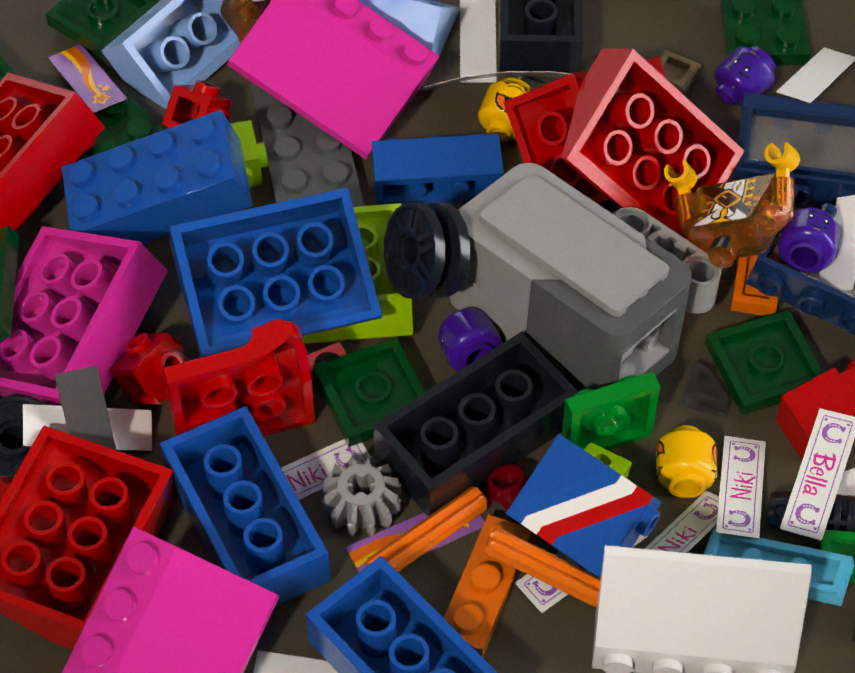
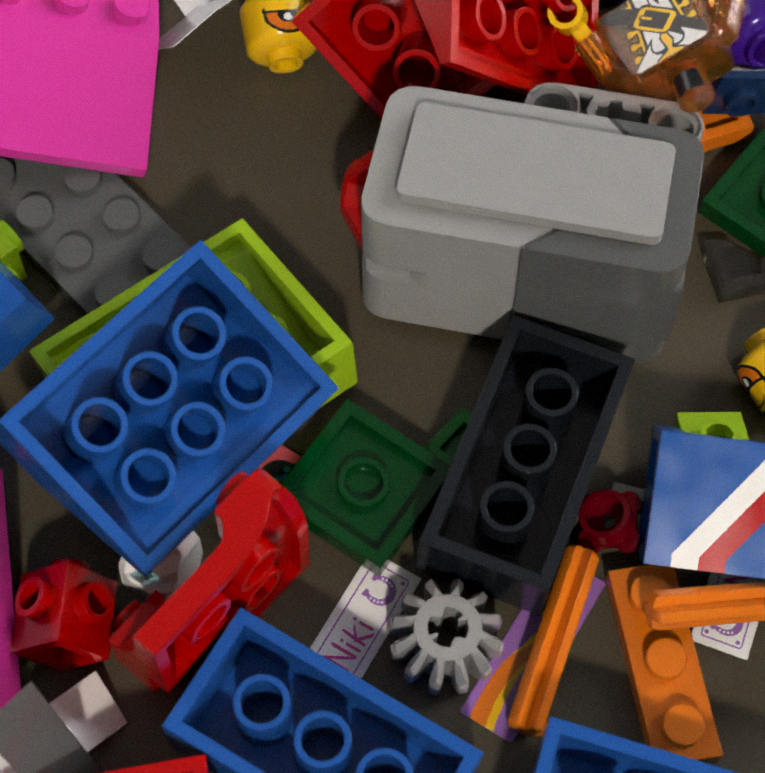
camera: 35 degrees left, 10 degrees up
(426, 250) = (349, 271): black wheel -> none
(435, 168) = (244, 148): blue brick -> none
(467, 337) = (438, 355): dark purple head -> none
(612, 413) = (671, 373): green plate -> none

